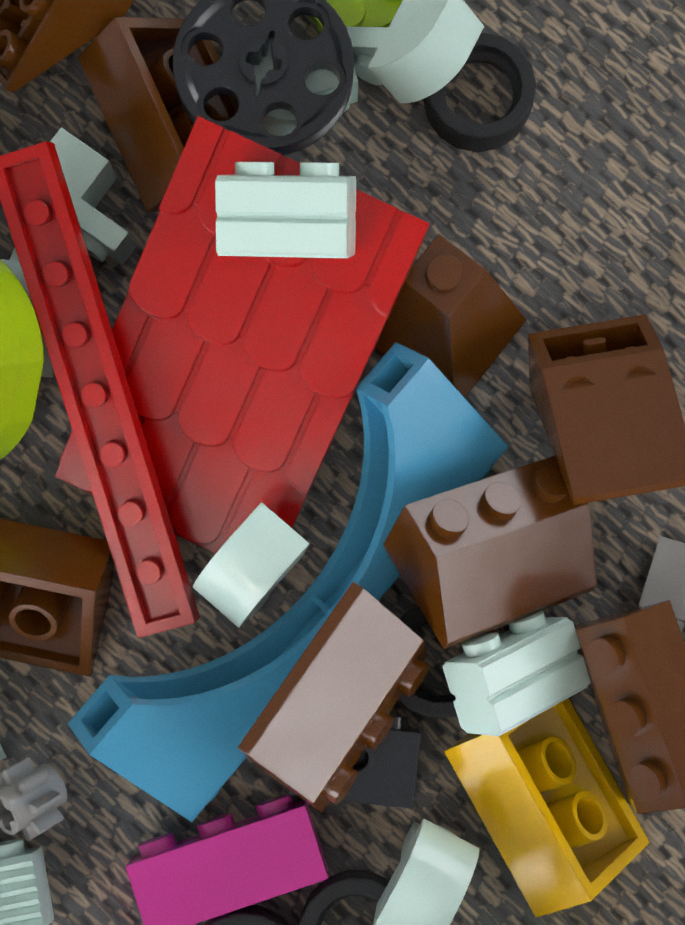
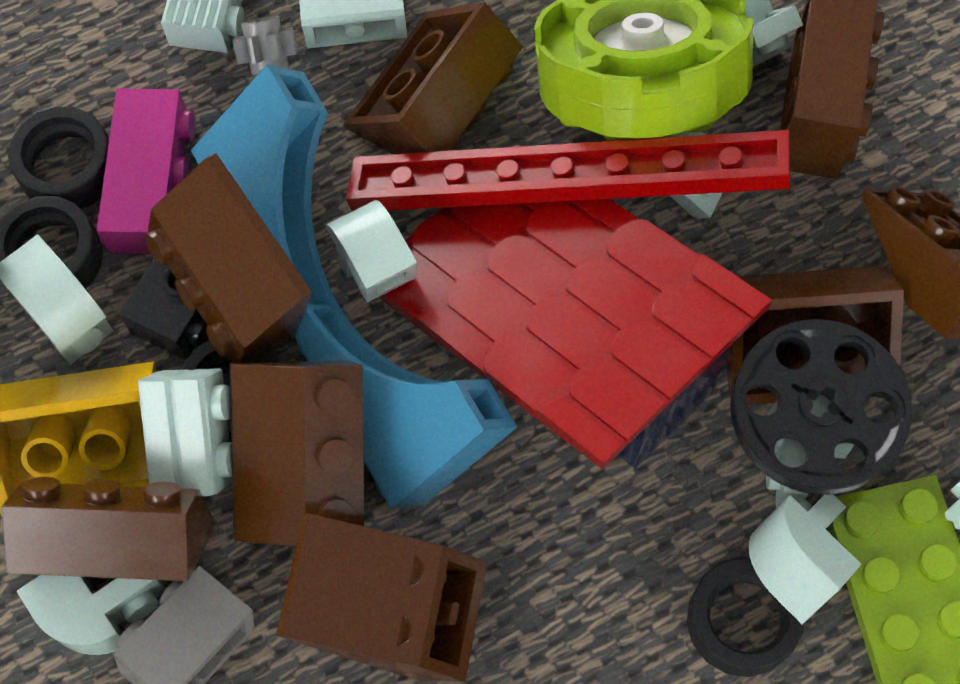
camera: 115 degrees right, 15 degrees down
(88, 180) = (764, 223): light aqua brick -> none
(286, 213) = (652, 338): light aqua brick -> none
(452, 315) = (530, 505): reddish brown slope -> none

